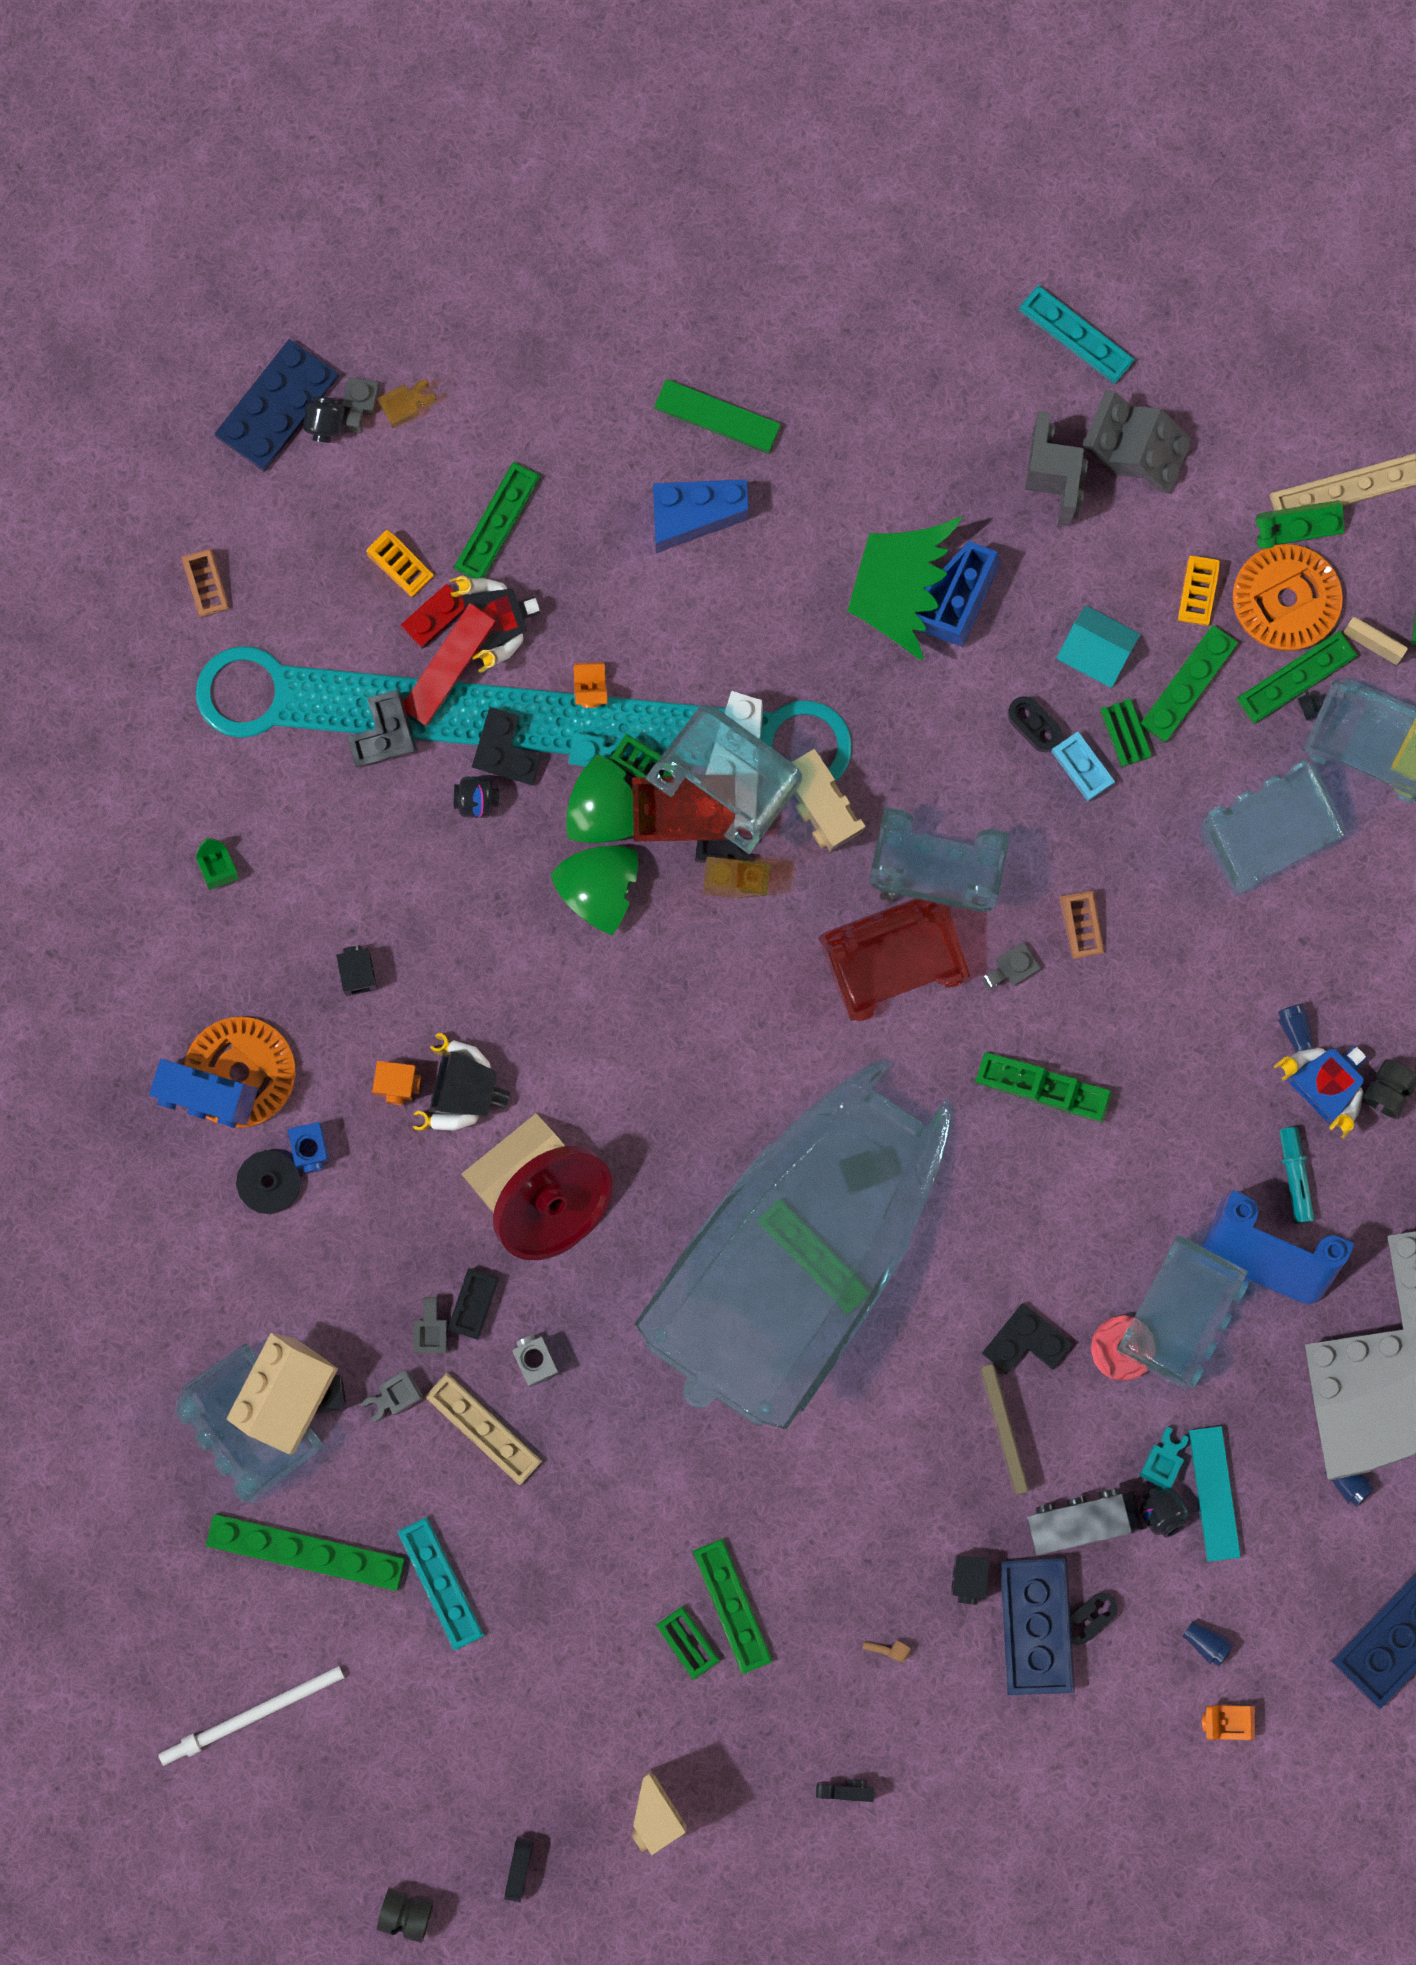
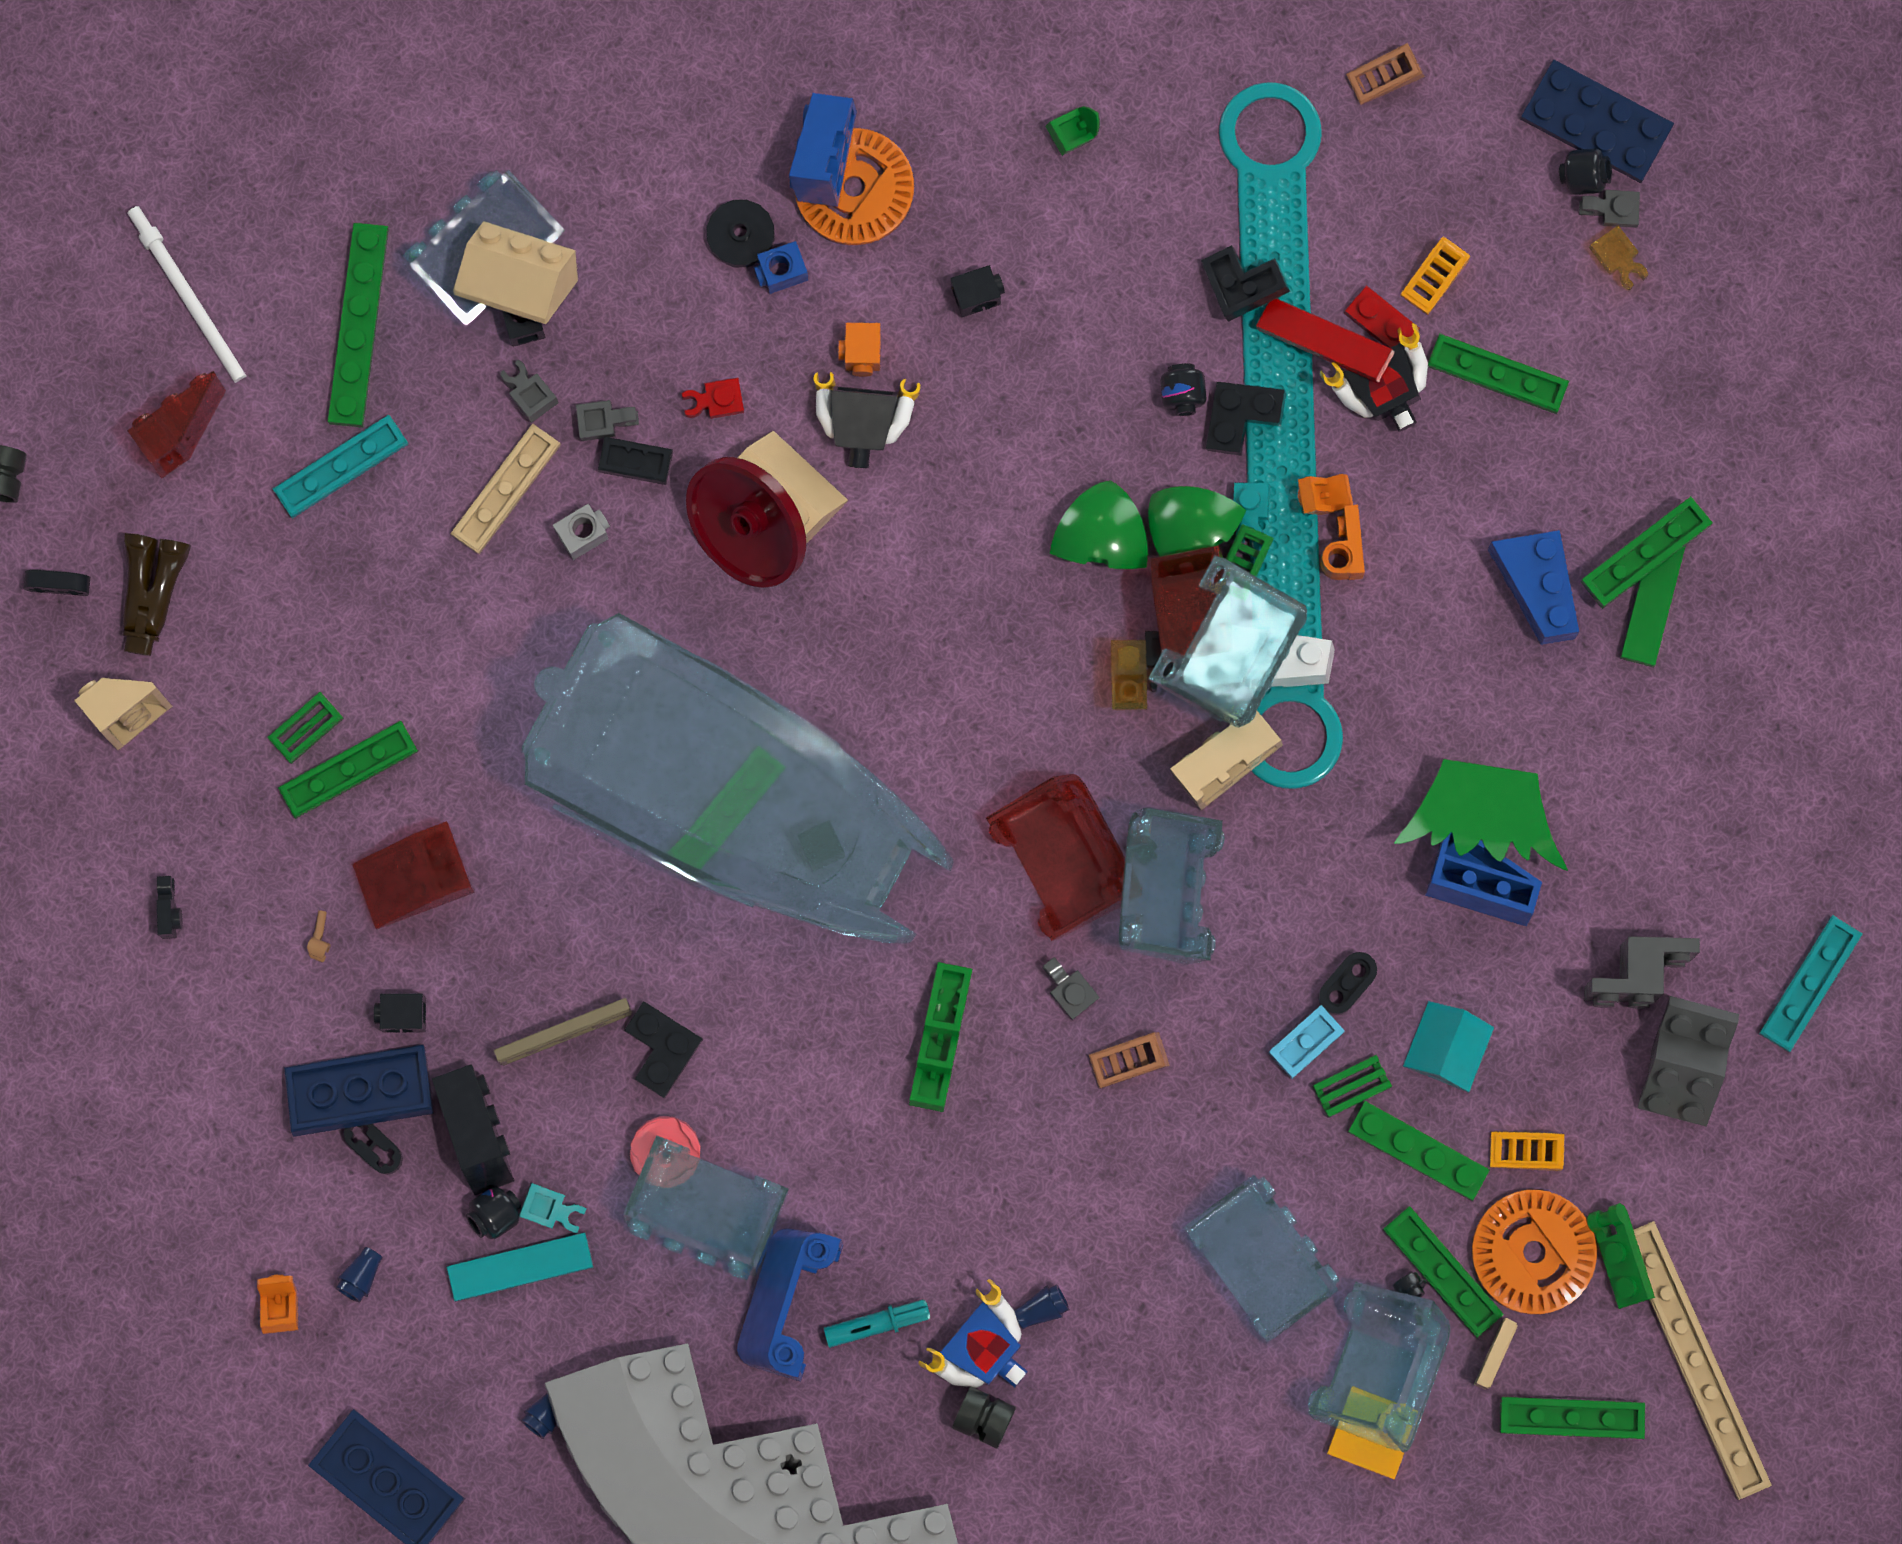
camera: 85 degrees right, 0 degrees up
(389, 1738) = (176, 428): none -> clear red slope
(424, 1218) = (721, 399): none -> red plate
(557, 1785) = (145, 610): none -> dark brown piece
(643, 667) = (1349, 527): none -> orange plate
(680, 414) = (1646, 552): none -> green plate
(843, 1554) = (413, 875): none -> clear red slope

